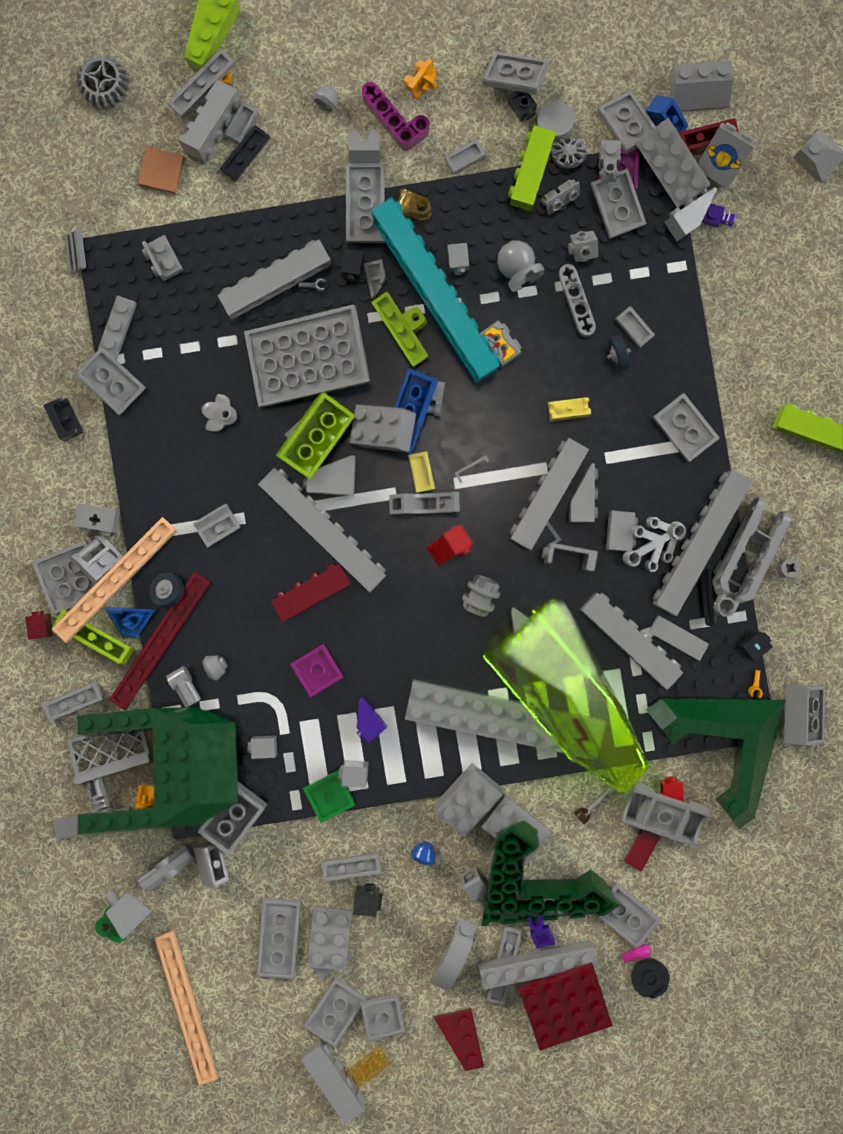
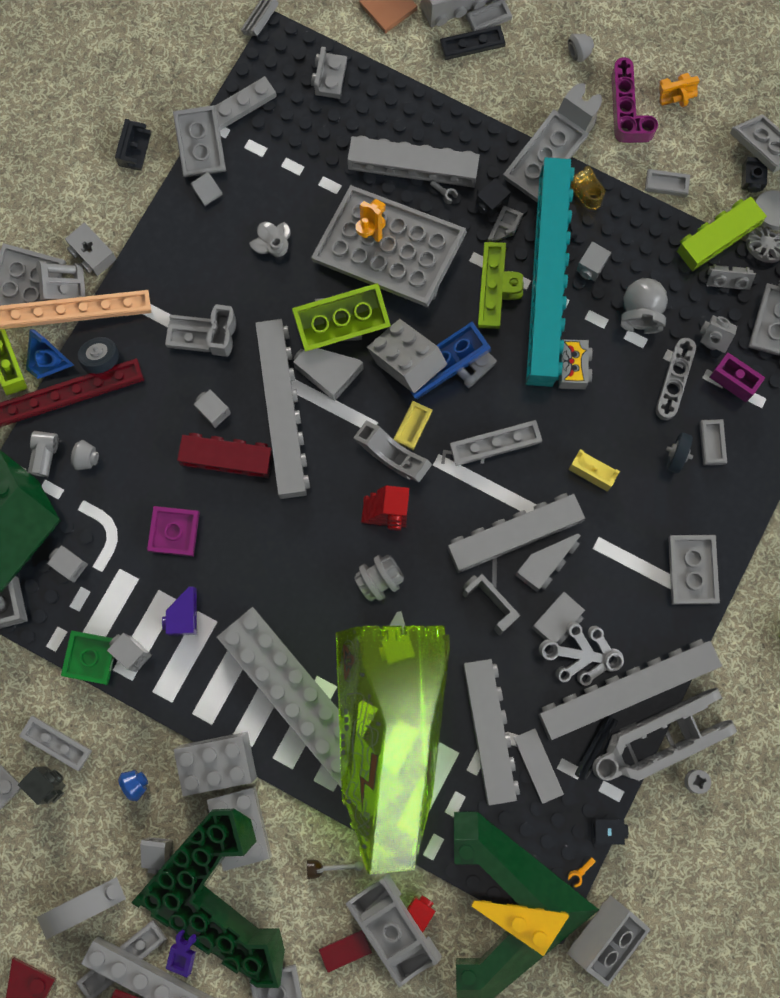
camera: 35 degrees right, 10 degrees down
(143, 412) = (206, 189): none -> light grey slope
(240, 512) = (222, 328): none -> light grey brick
(274, 566) = (211, 408): none -> light grey brick
(283, 349) = (371, 220): none -> light orange hips
(488, 441) = (495, 443): none -> light grey plate
(619, 268) = (737, 377): none -> magenta brick
(753, 745) = (532, 926): none -> yellow wing

